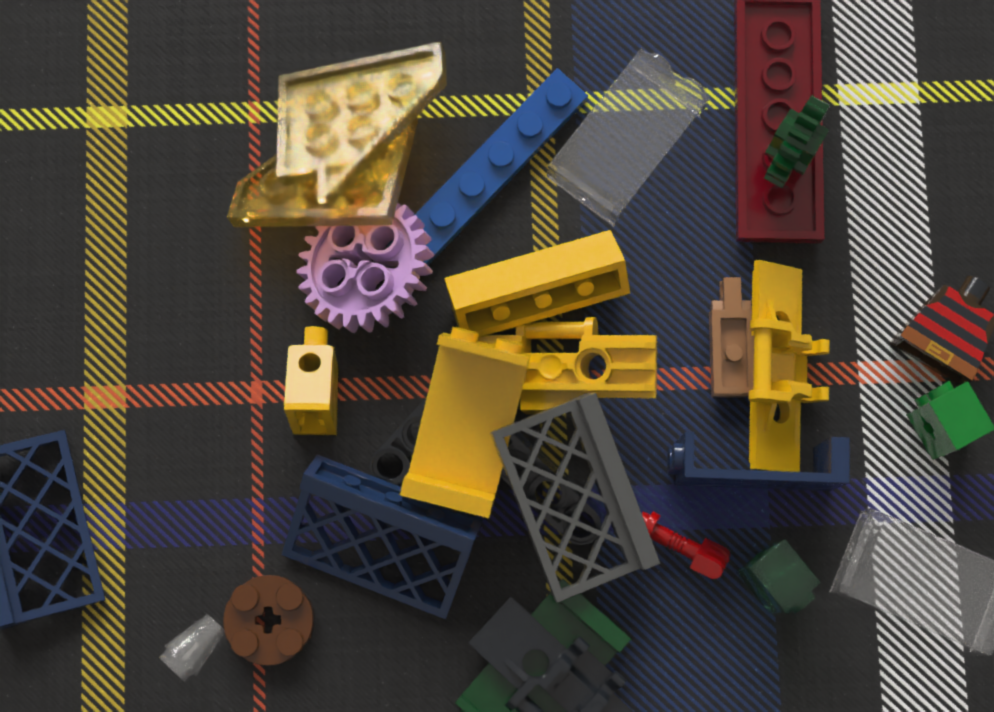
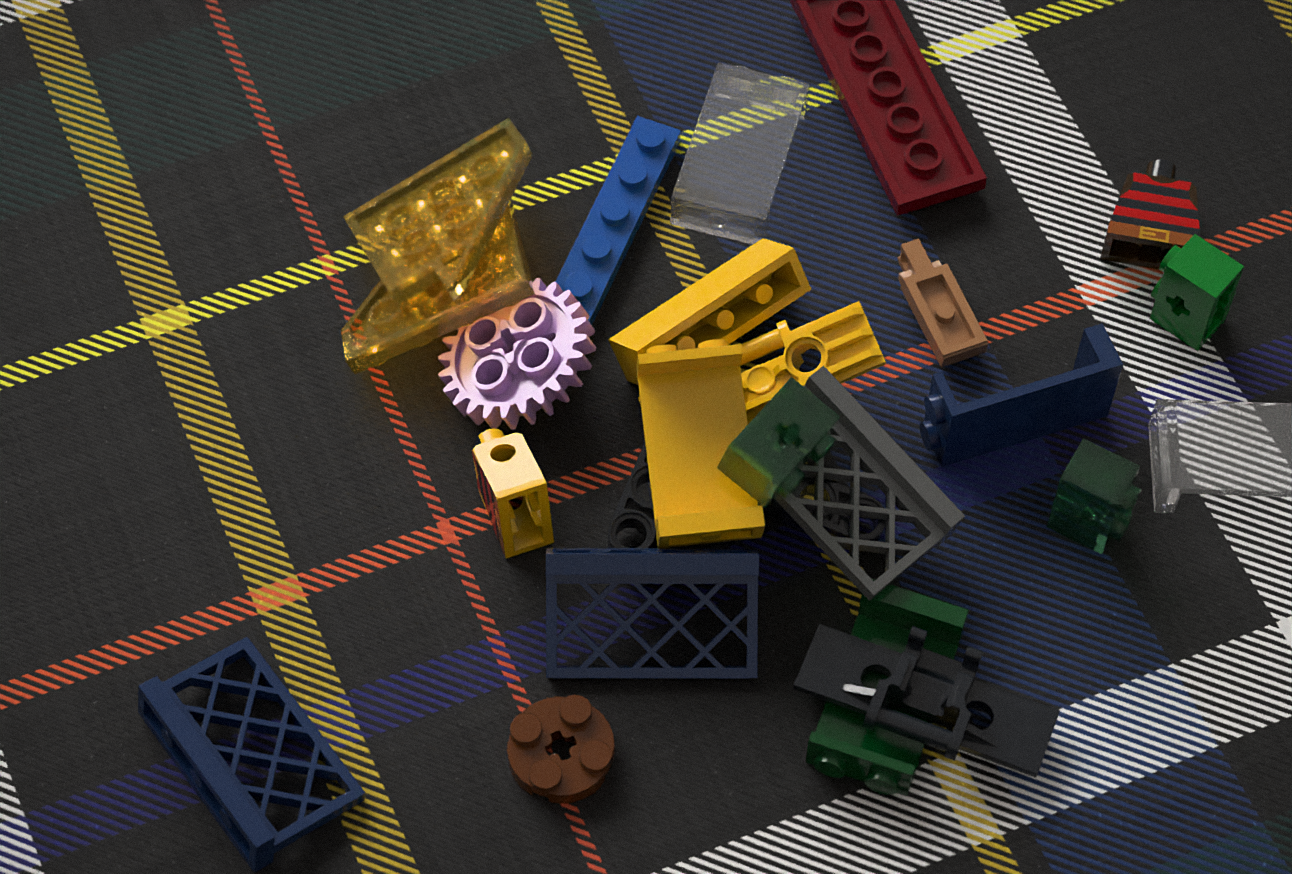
camera: 20 degrees left, 20 degrees down
(192, 647) = (486, 806): clear cone -> none
(541, 432) = (790, 418): none -> clear green brick
(707, 557) = (996, 511): red hinge -> none
(779, 367) = (997, 295): yellow piece -> none
(796, 141) = (918, 84): dark green gear -> none

